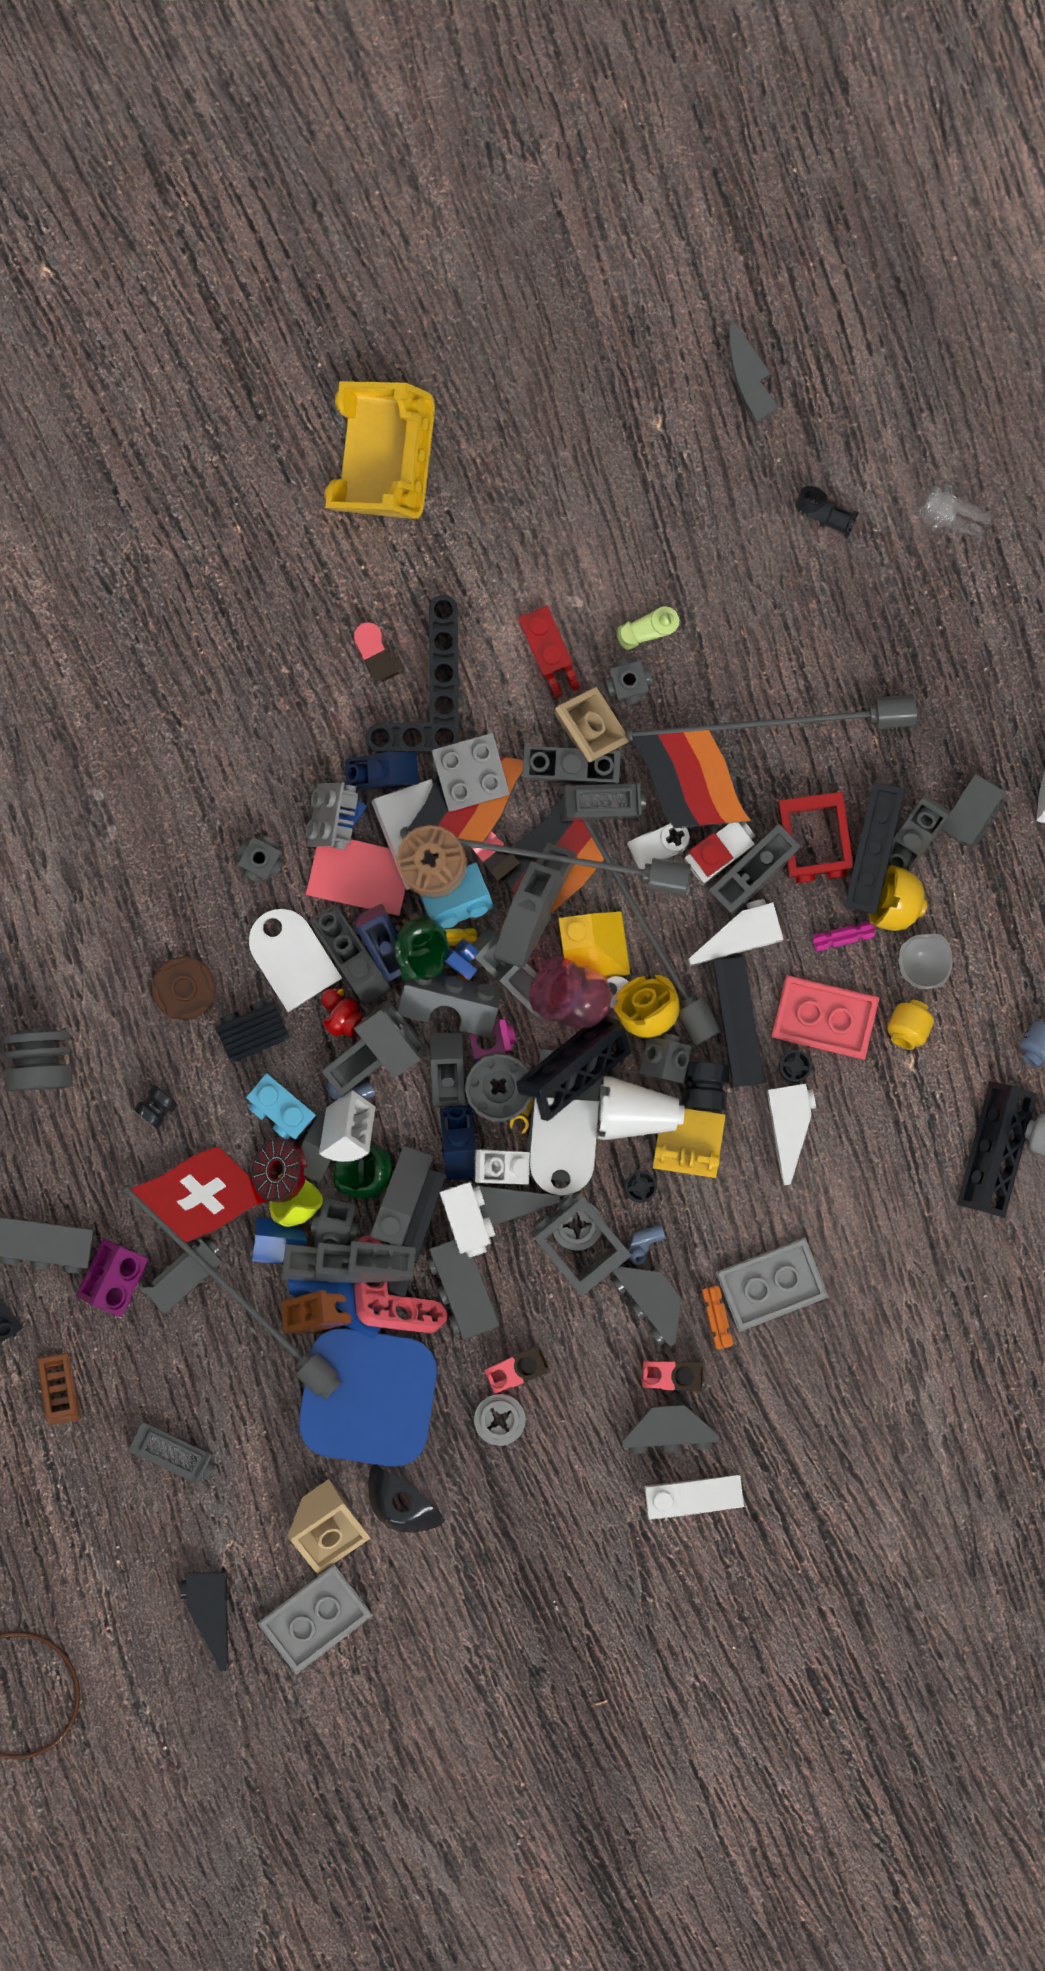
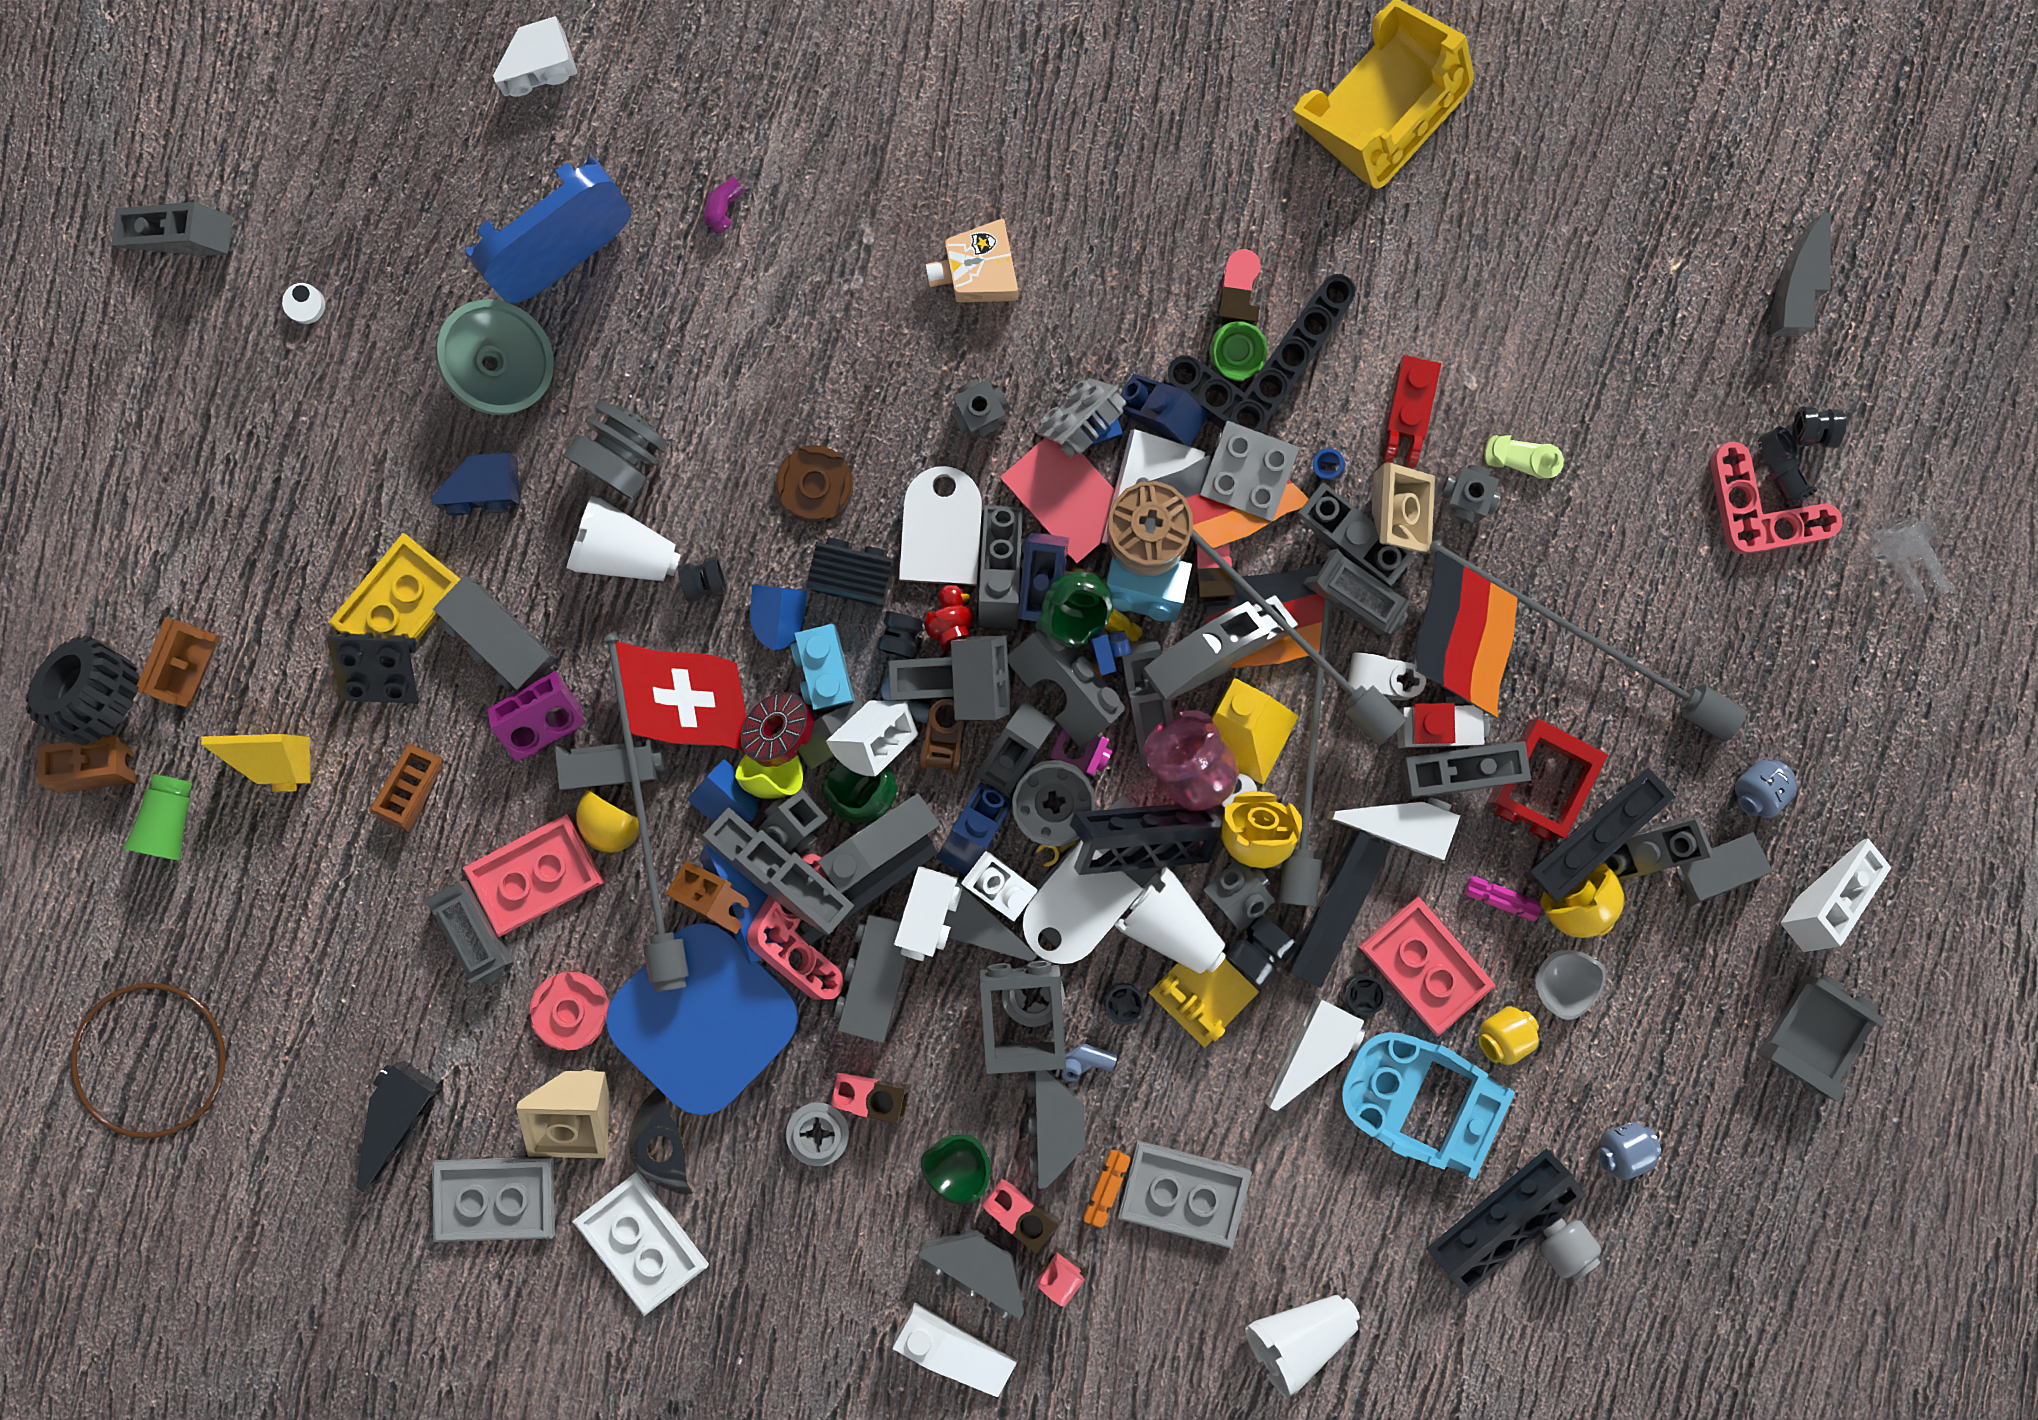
camera: 35 degrees right, 0 degrees up
(84, 1124) = (620, 546): none -> white cone
(185, 1386) = (533, 875): none -> coral tile
(188, 762) = (977, 265): none -> light nougat torso
(209, 1317) = (605, 825): none -> yellow helmet
(222, 1094) = (776, 614): none -> blue brick
(275, 1458) = (569, 1010): none -> coral tile
(312, 1041) = (903, 626): none -> black wheel
(395, 1099) = (942, 740): none -> reddish brown piece
(405, 695) = (1238, 351): none -> bright green hair
(434, 1577) = (640, 1243): none -> white tile
(519, 721) = (1329, 457): none -> blue hinge
(607, 1374) = (957, 1168): none -> dark green helmet
(728, 1395) = (1060, 1277): none -> coral leg
(830, 468) = (1819, 427): none -> black wheel
(840, 558) = (1762, 524): none -> coral beam
(852, 1115) = (1386, 1082): none -> medium azure slope
(914, 1322) = (1301, 1340): none -> white cone
(964, 737) = (1766, 788): none -> sand blue head

